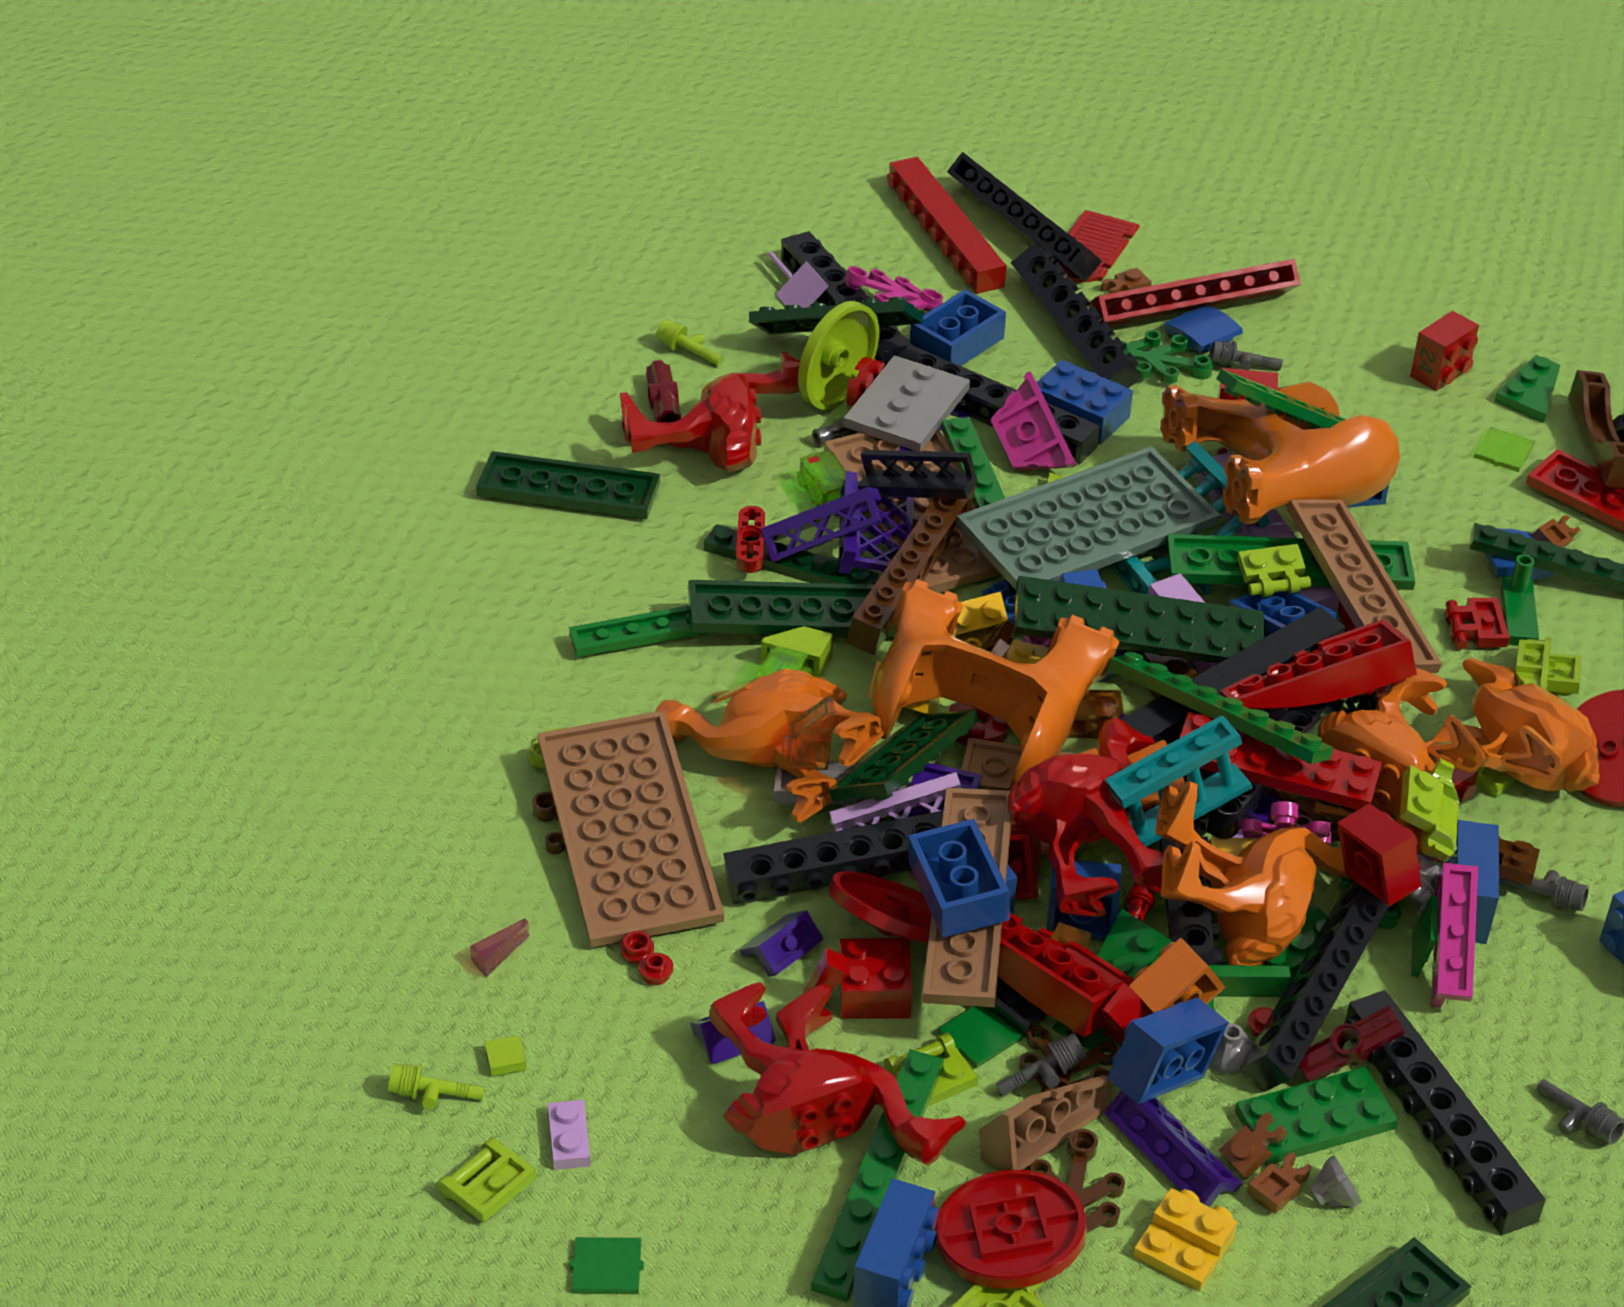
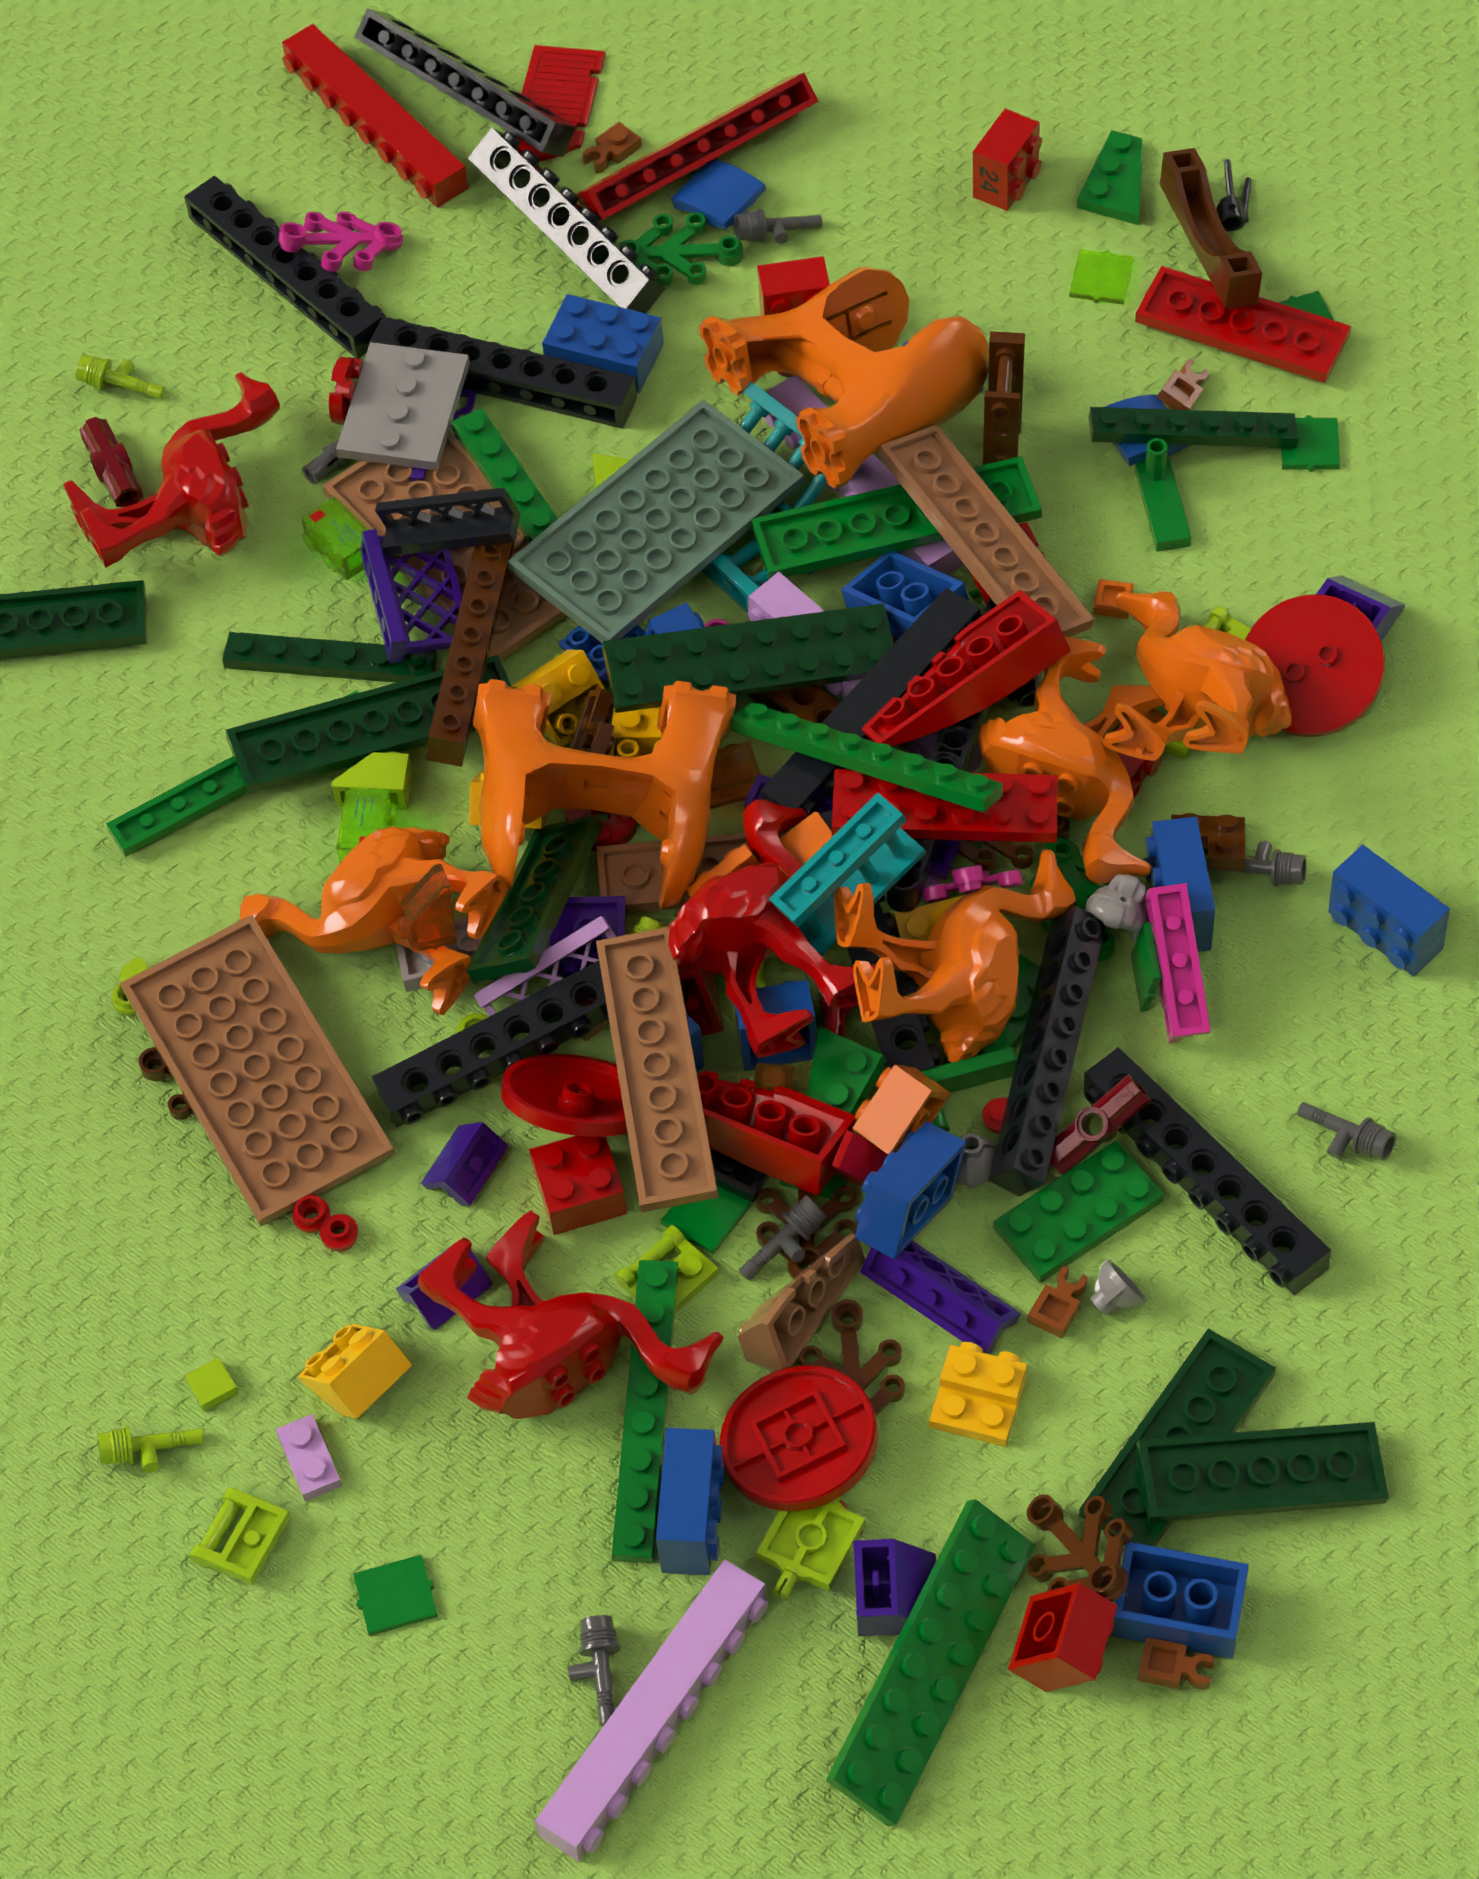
camera: 10 degrees left, 15 degrees up
(496, 948) = (157, 1260): piece -> none
(634, 1073) = (355, 1369): none -> yellow slope
(721, 695) = (325, 869): orange piece -> none
(752, 547) = (273, 659): red beam -> none
(798, 320) = (286, 304): dark green plate -> none
(802, 287) = (229, 260): lavender piece -> none
(819, 517) = (349, 602): dark purple fence -> none
(830, 970) = (529, 1194): red piece -> none
(833, 352) = (304, 366): lime dish -> none
(959, 878) = (642, 1060): blue brick -> none
(960, 328) = (432, 276): blue brick -> none
(1030, 430) = (557, 406): dark pink wing -> none
(1249, 1149) = (1018, 1272): dark orange plate -> none
(1273, 563) = (877, 532): lime plate -> none
(1277, 401) = (866, 310): green plate -> none
(1379, 854) = (1080, 899): red brick -> none
(1404, 490) = (1004, 396): none -> reddish brown fence
(1432, 805) = (1122, 821): lime plate -> none
(1454, 669) = (1106, 596): none -> orange tile
(1485, 625) = (1129, 530): red plate -> none
(1549, 671) = (1207, 583): lime plate -> none

